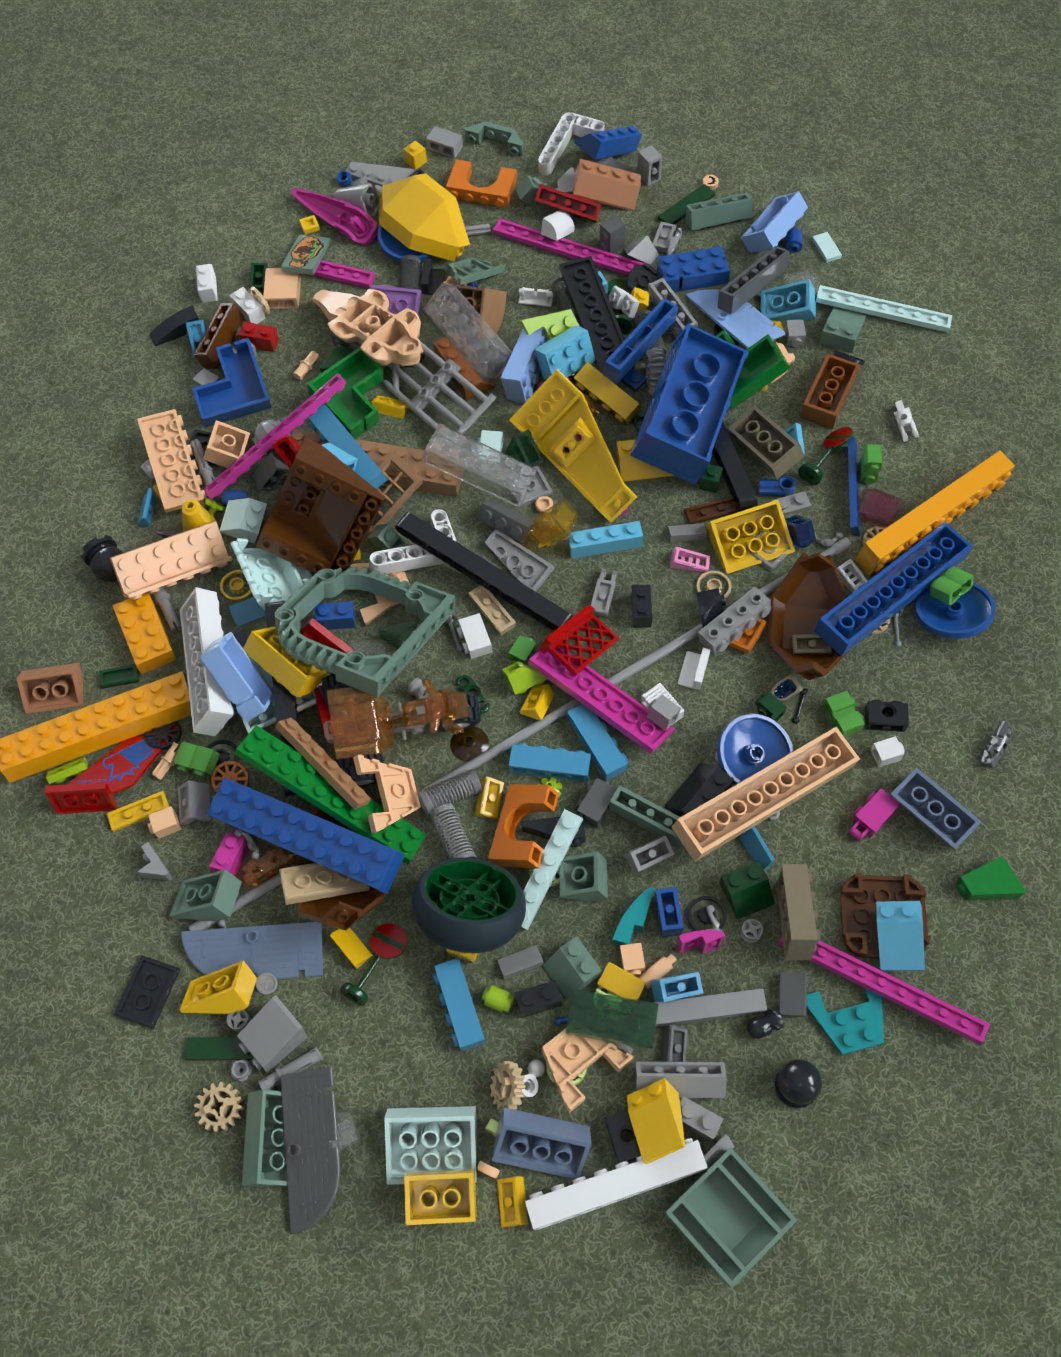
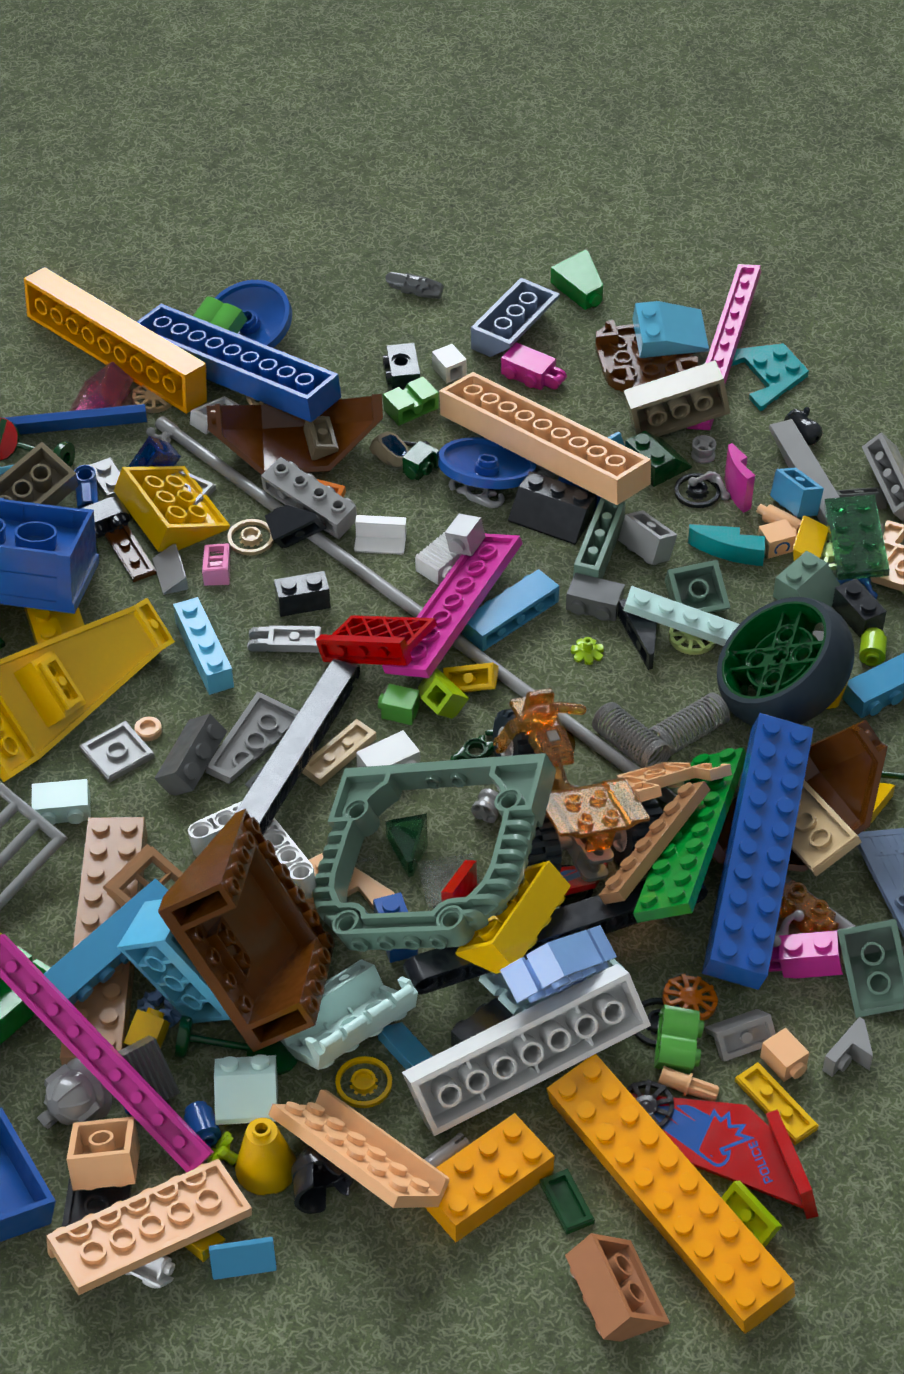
camera: 105 degrees left, 15 degrees down
(97, 556) = (368, 1272): black tile -> none
(205, 469) = (149, 1181): light grey axle -> none
(287, 448) = (119, 1029): red slope -> none
(479, 465) = (109, 786): clear brick -> none
(489, 799) = (634, 705): yellow slope -> none
(518, 803) = (620, 666): orange arch -> none
(524, 449) = (61, 758): clear green slope -> none
(549, 762) = (555, 649): dark azure brick -> none
(553, 525) = (198, 688): clear yellow brick -> none
(668, 912) = (713, 509): blue brick -> none
(793, 994) = (761, 409): dark grey slope -> none
(798, 1083) = (857, 391): black tile -> none
(870, 463) = (44, 395): bright green brick -> none

